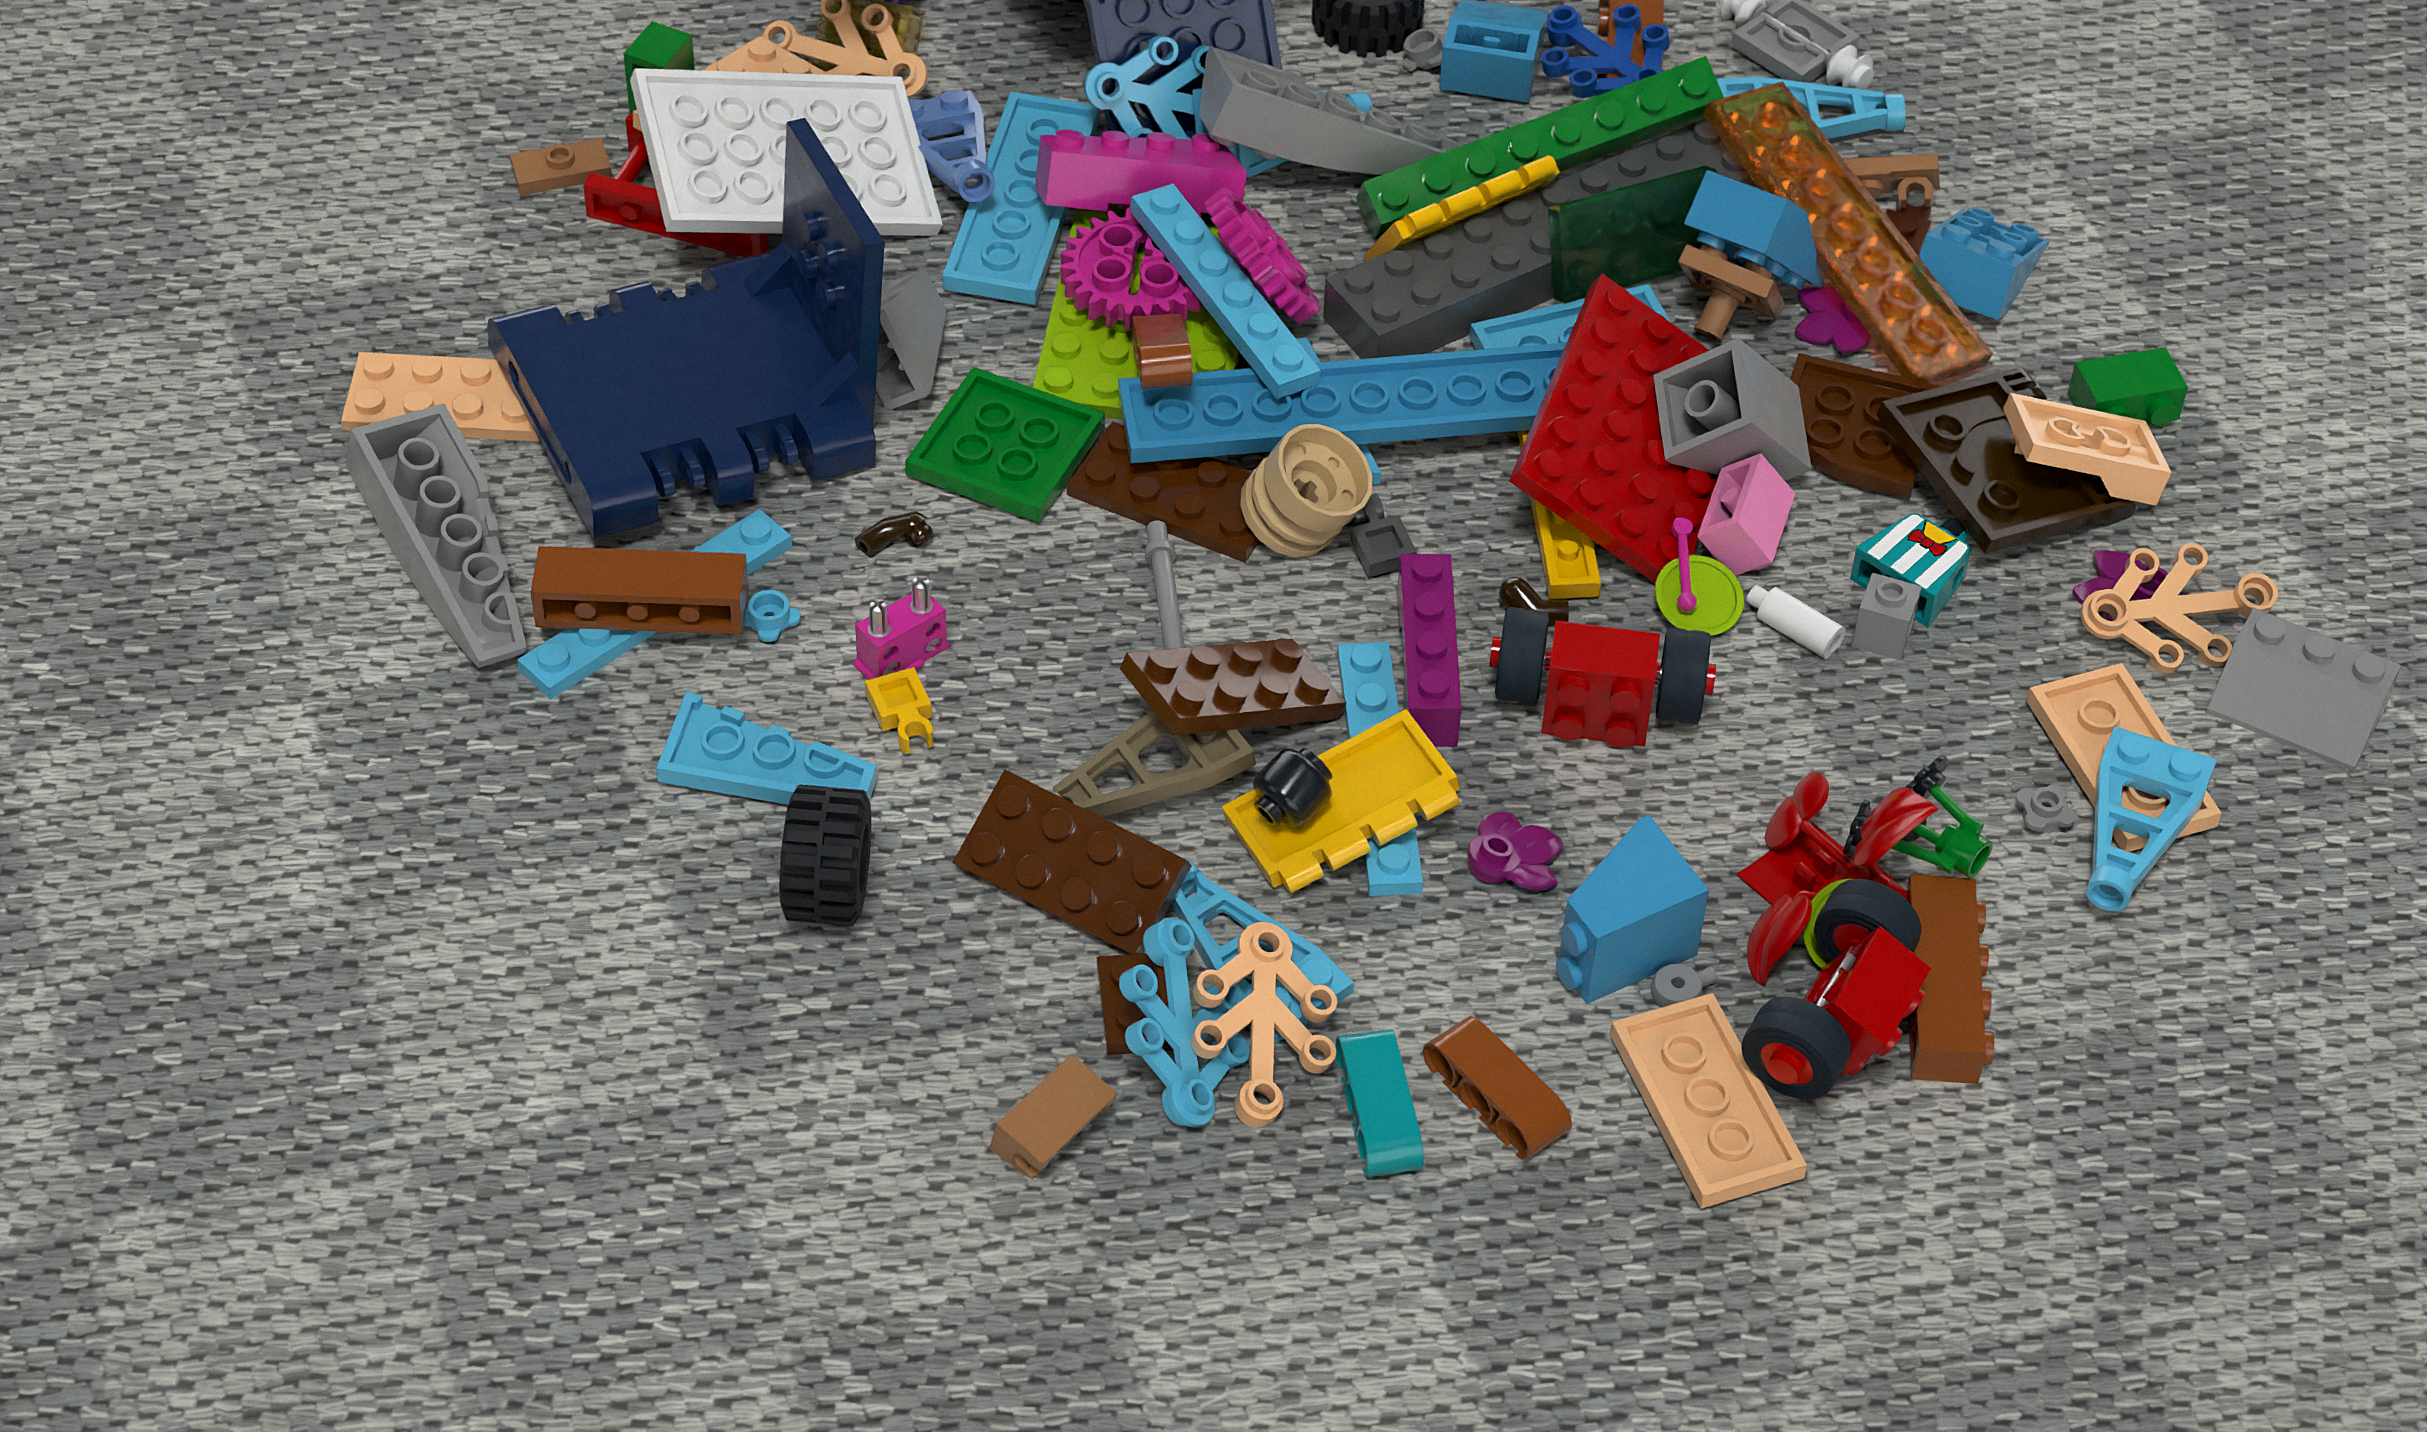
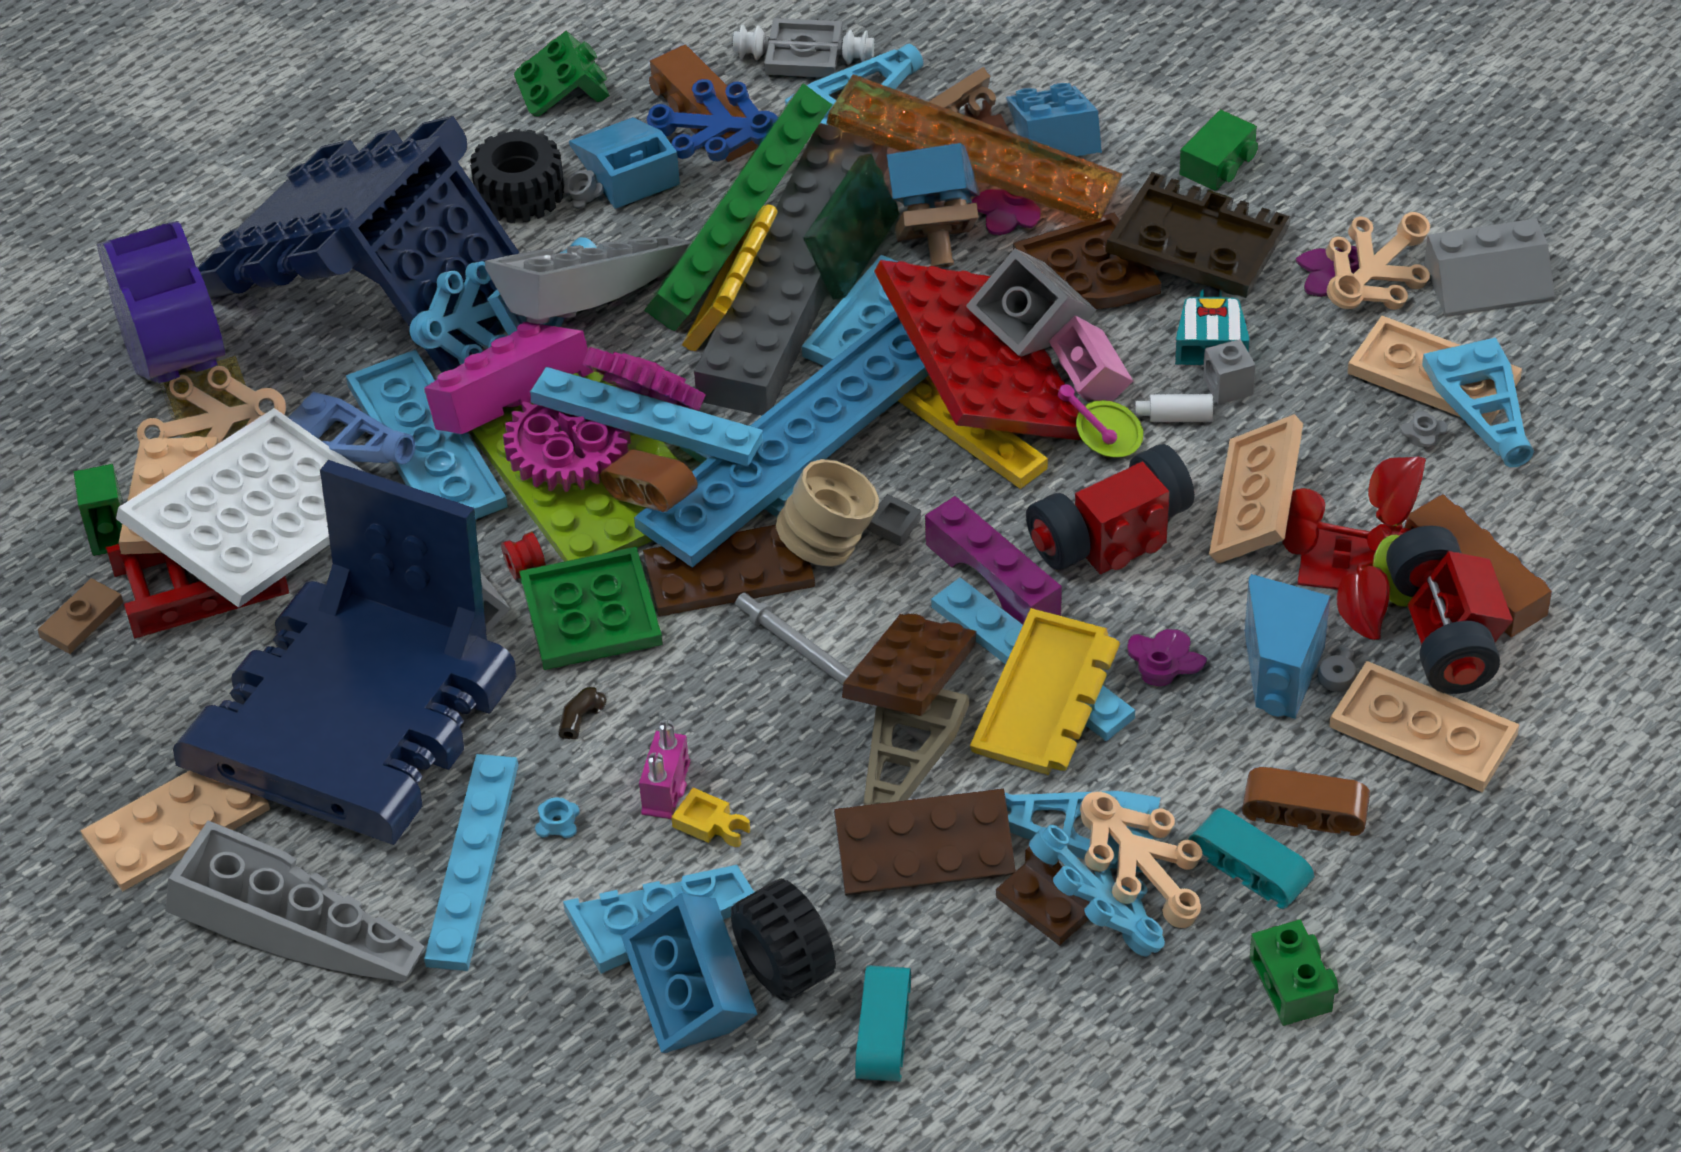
camera: 35 degrees left, 0 degrees up
(640, 590) = (472, 855): dark orange brick -> none
(721, 830) = (688, 973): none -> dark azure slope
(851, 1002) = (883, 1023): none -> teal beam
(994, 353) = (522, 554): none -> red wheel
(1051, 1116) = (1078, 1004): medium nougat hinge -> none
(1292, 788) = (1015, 702): black head -> none
(1295, 1238) = (1293, 972): none -> green brick
(1519, 594) = (1013, 500): dark brown arm -> none
(1782, 748) = (1256, 489): none -> light nougat plate
(1955, 848) = (1358, 494): green plant -> none
(2091, 443) = (1241, 194): light nougat piece -> none

